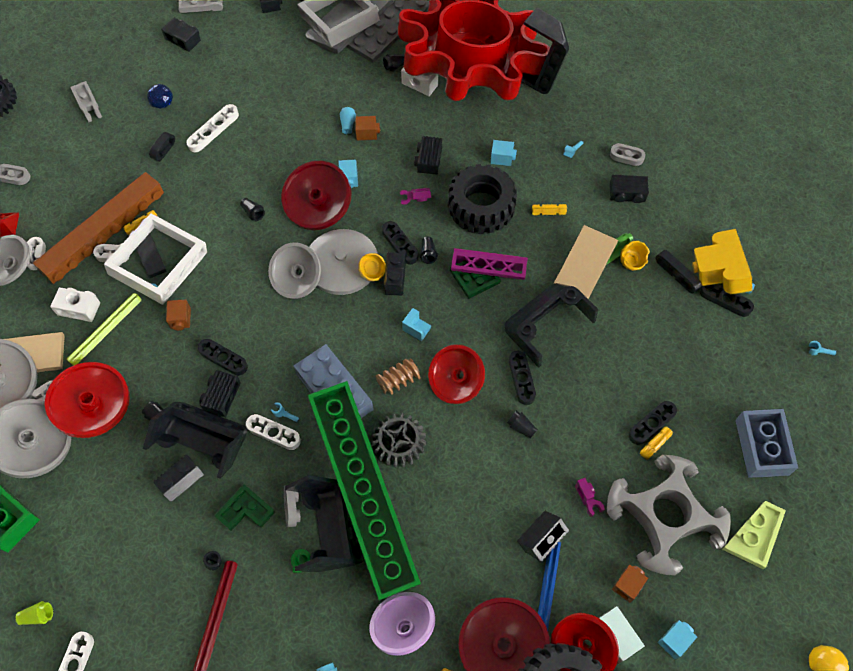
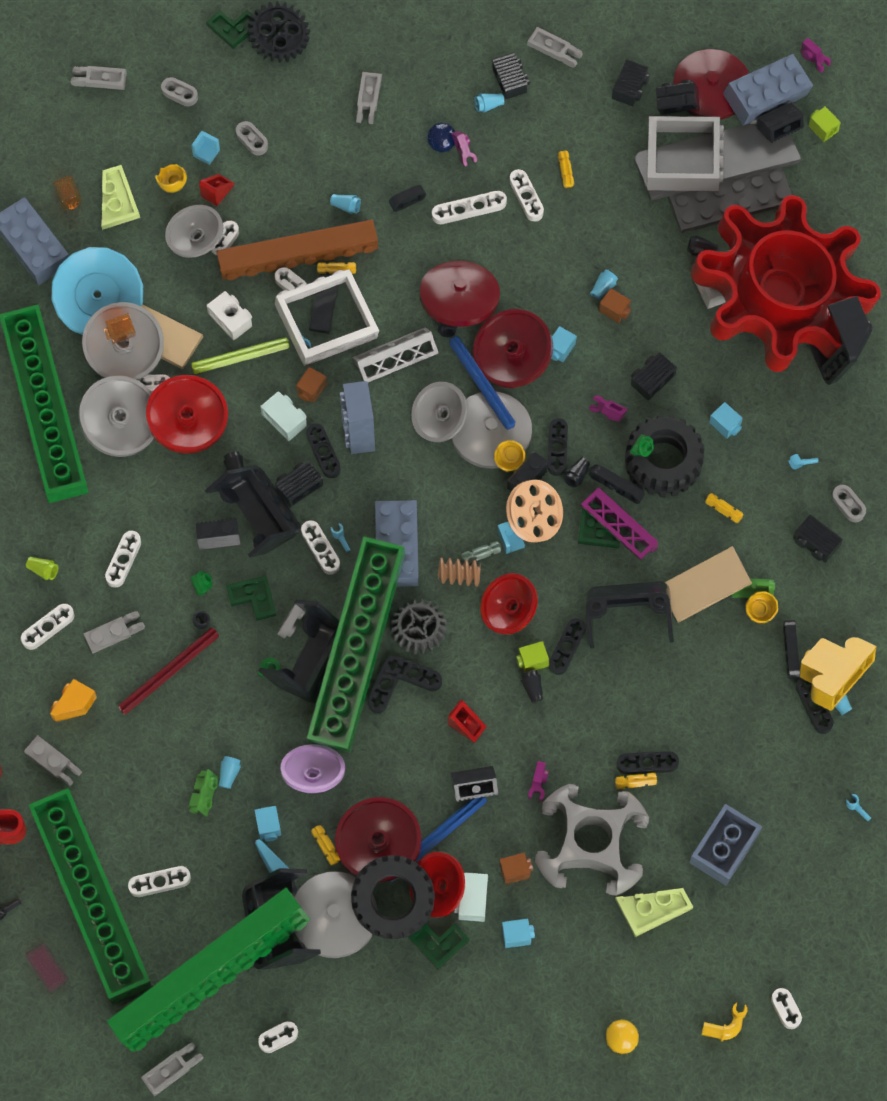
camera: 35 degrees right, 5 degrees up
(99, 541) = (114, 562): none -> white beam
(117, 175) = (347, 203): none -> medium azure cone
(138, 628) = (112, 632): none -> light grey hinge
(171, 350) = (284, 415): none -> light aqua brick
(177, 57) = (486, 102): none -> medium azure cone
(179, 91) = (462, 145): none -> magenta plate
(191, 528) = (202, 582): none -> green plate
(224, 250) = (395, 347): none -> light grey fence
(234, 309) = (357, 417): none -> sand blue brick
(245, 92) = (527, 187): none -> white beam
(248, 184) = (459, 293): none -> dark red dish
(264, 68) = (566, 170): none -> yellow axle
(312, 232) = (482, 383): none -> blue axle
(403, 351) = (481, 552): none -> sand green axle
(408, 493) = (394, 675): none -> black beam
(421, 294) = (543, 511): none -> light nougat wedge
(466, 196) = (643, 446): none -> green plate
(470, 238) = (616, 482): none -> black beam
(495, 490) = (466, 722): none -> red slope
(505, 402) = (532, 657): none -> lime brick

